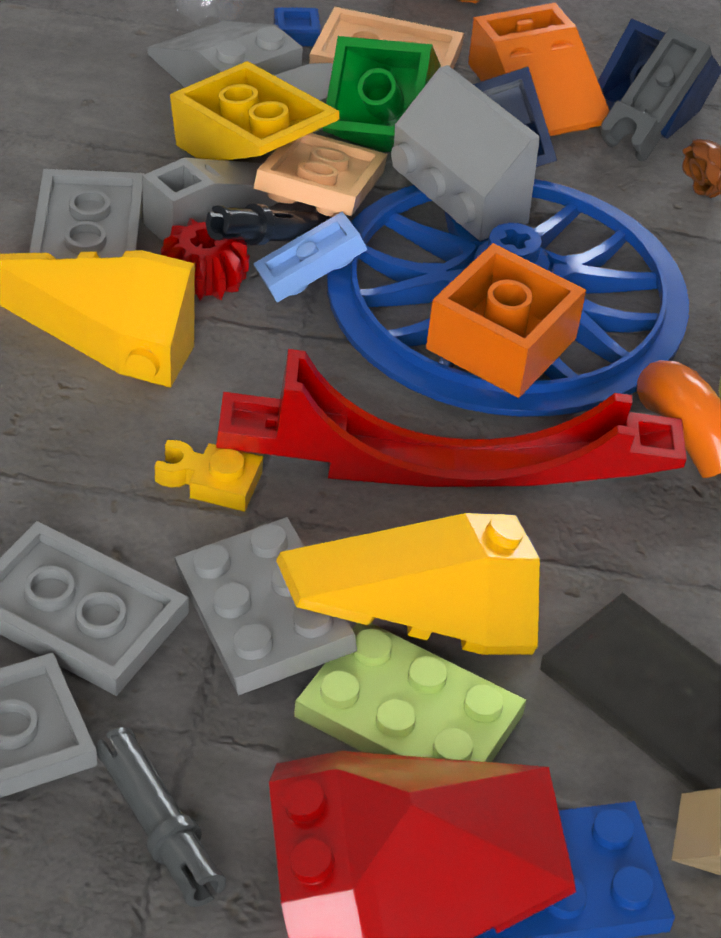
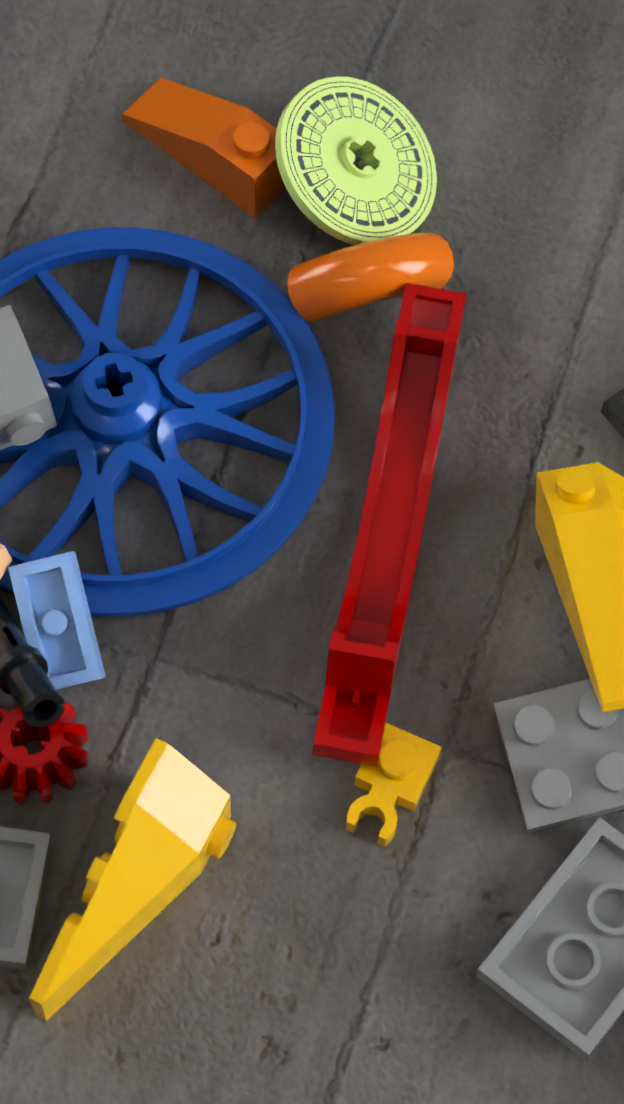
camera: 80 degrees left, 20 degrees up
(505, 319) = (254, 418): orange brick -> none

